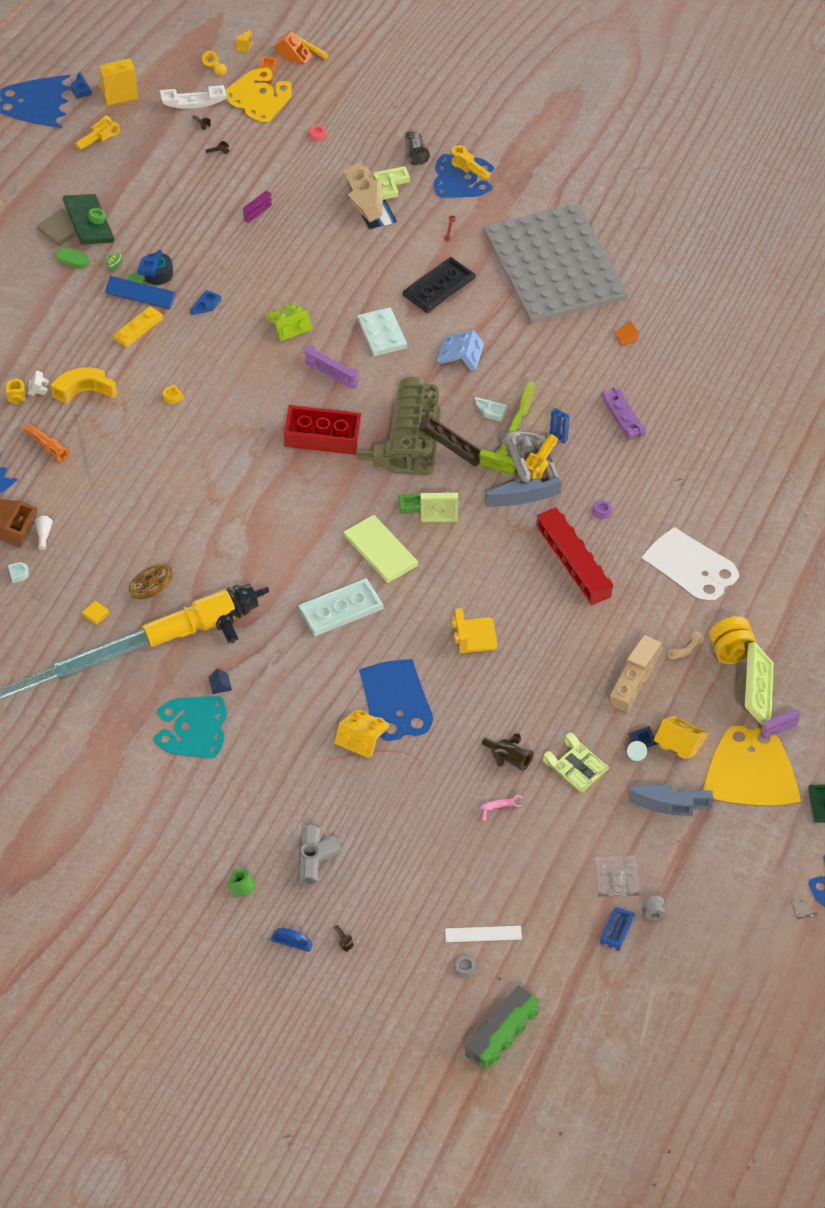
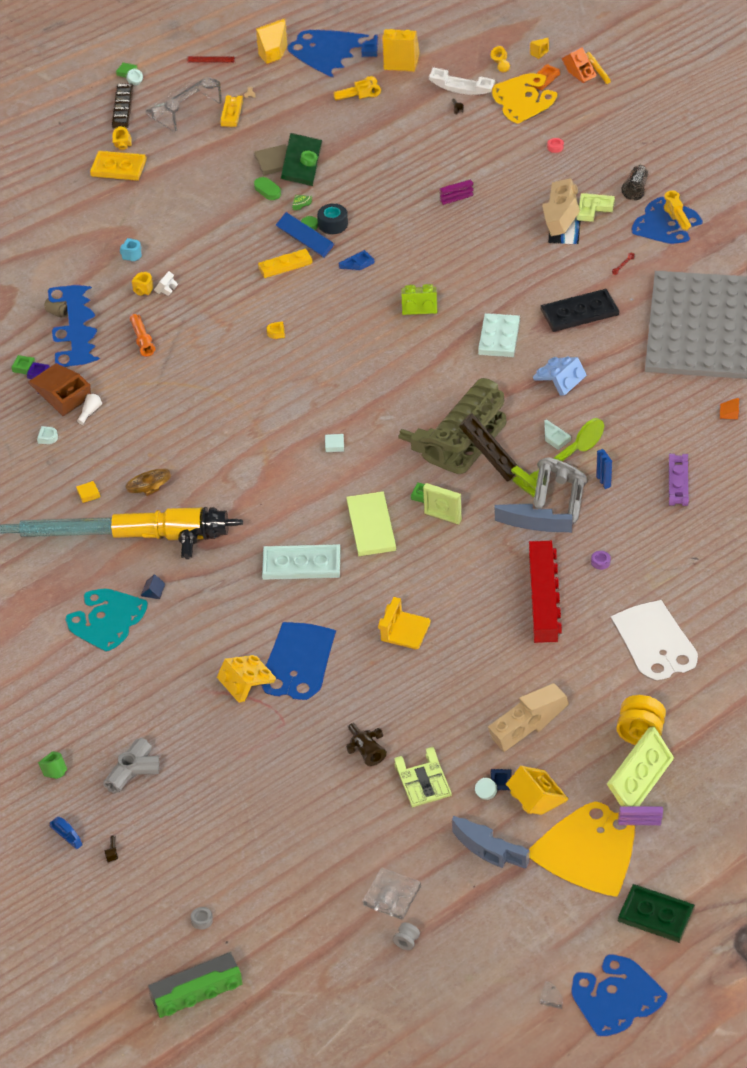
camera: 30 degrees right, 5 degrees down
(80, 380) = (202, 291): yellow arch -> none
(149, 264) = (323, 211): blue tile -> none
(222, 146) = (460, 132): dark brown hand -> none
(298, 484) = (334, 443): none -> light aqua tile
(322, 429) = (383, 401): red brick -> none
(330, 367) = (432, 354): medium lavender plate -> none
(483, 933) = (238, 896): white sticker -> none
(498, 804) = (327, 787): bright pink piece -> none
(537, 462) = (562, 496): yellow connector -> none
(611, 942) = (365, 943): blue tile -> none
(697, 639) = (612, 709): tan piece -> none

